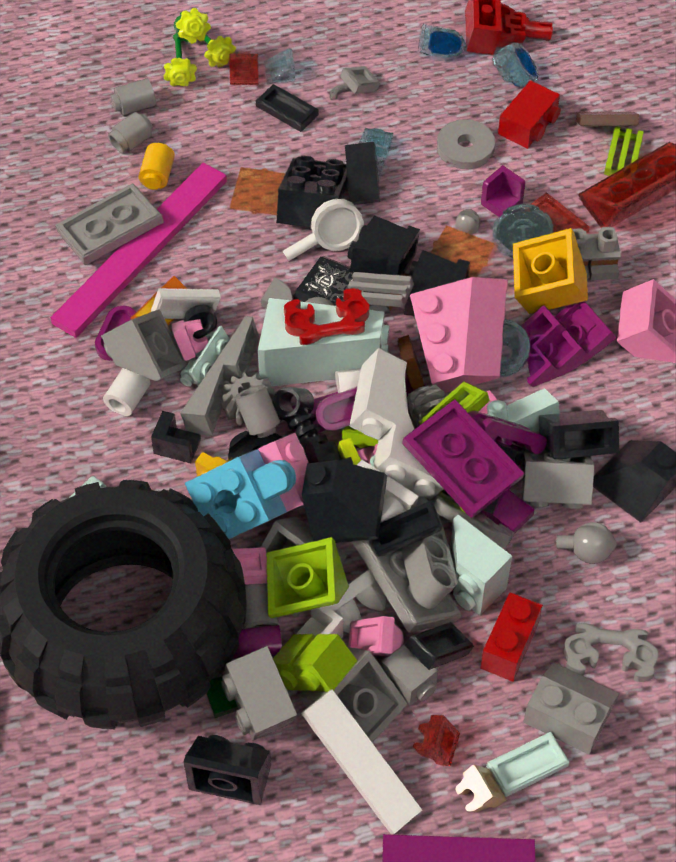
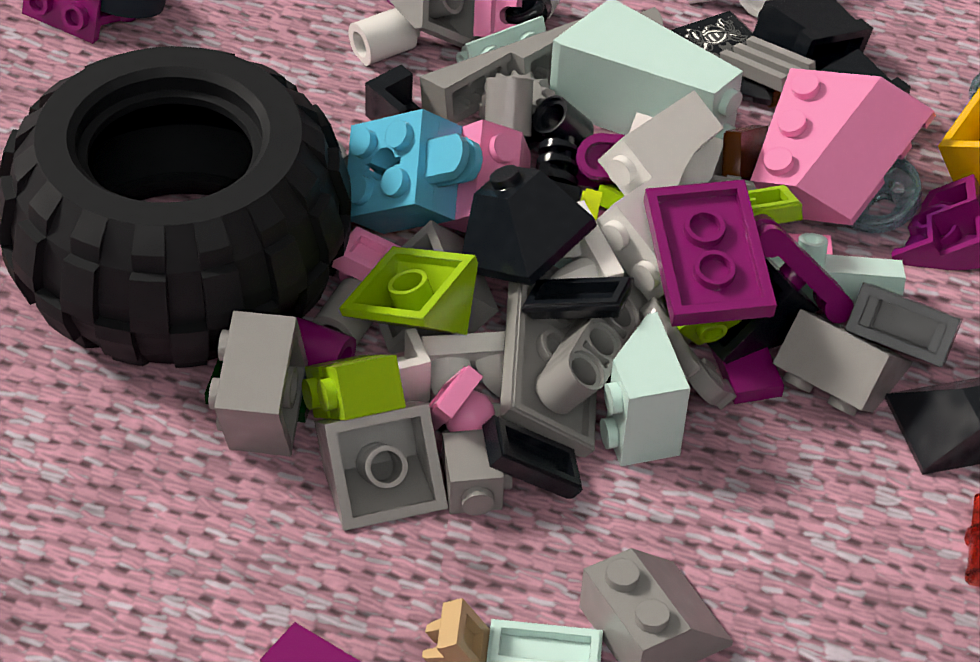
camera: 30 degrees right, 10 degrees down
(227, 769) = (165, 449): black slope -> none
(300, 321) = (629, 38): red helmet -> none
(361, 761) = (326, 522): white tile -> none
(439, 740) = (449, 561): clear red tile -> none
(460, 245) = (926, 80): clear orange piece -> none
(468, 221) = (950, 58): light grey hinge -> none
(511, 636) = (634, 497): red brick -> none
(591, 543) = (825, 452): light grey piece -> none
(642, 654) = (797, 616): light grey helmet -> none

